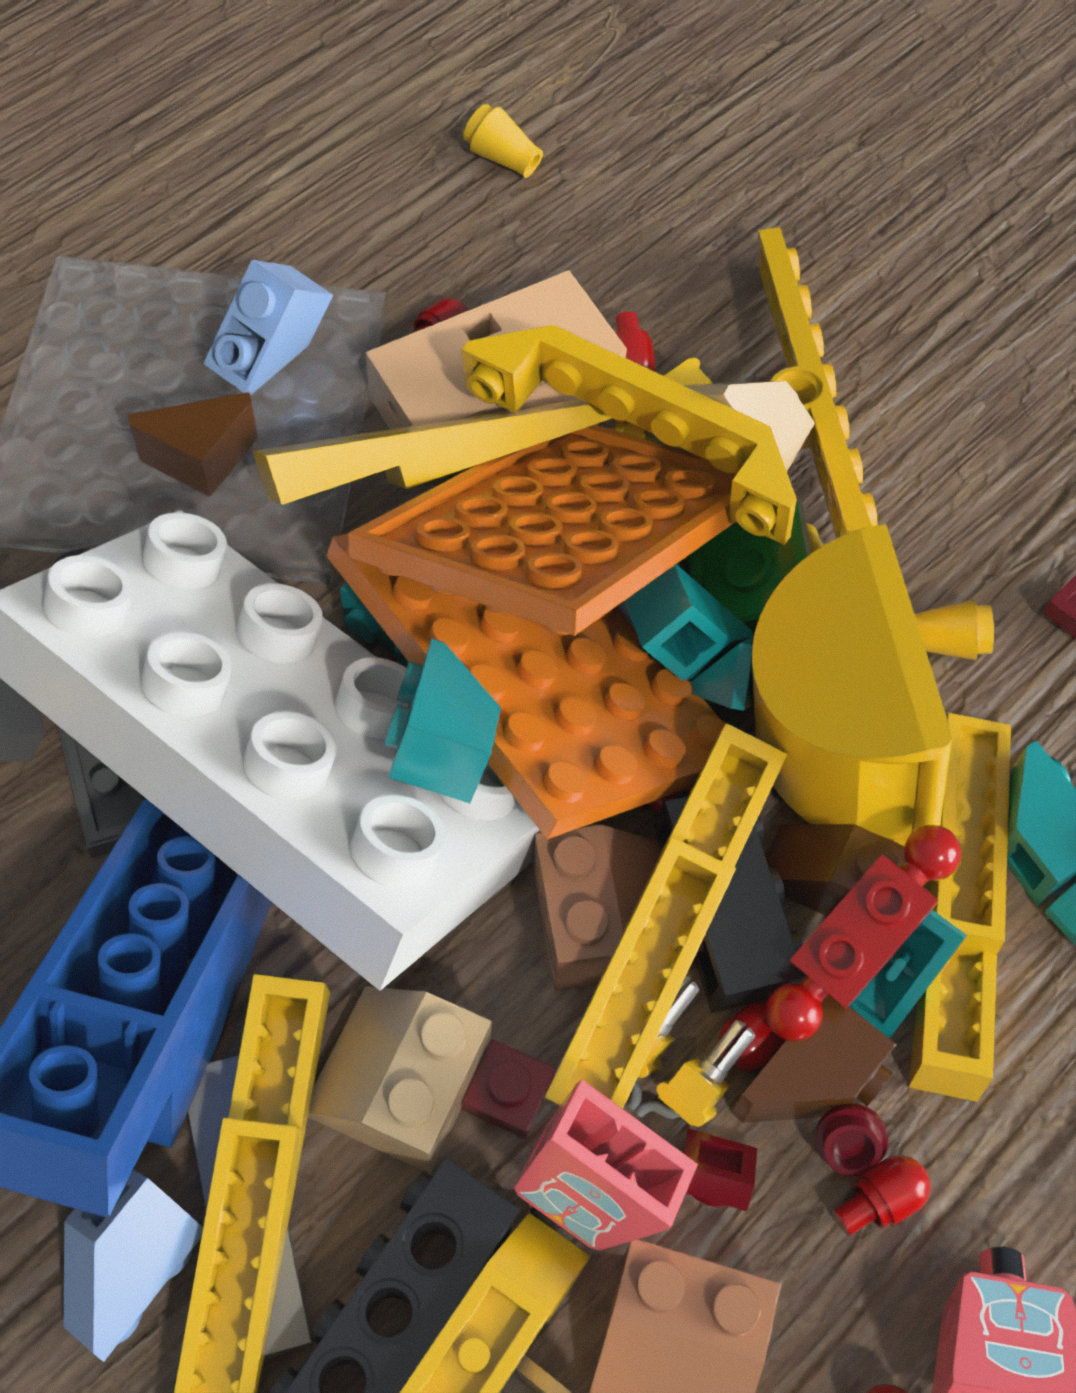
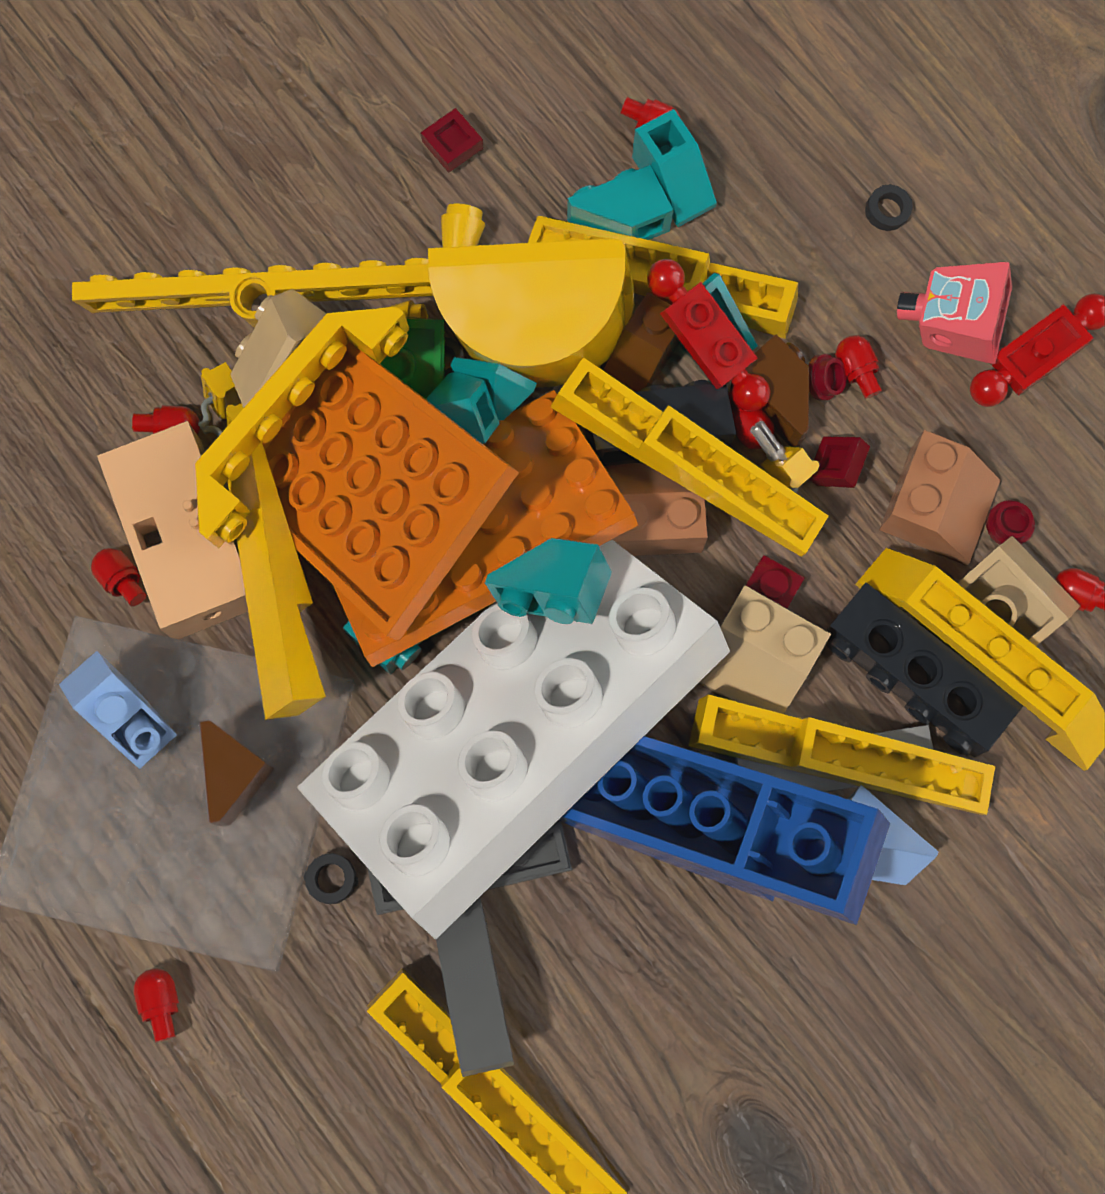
camera: 80 degrees left, 15 degrees up
(603, 1173) = (850, 541): coral torso -> none

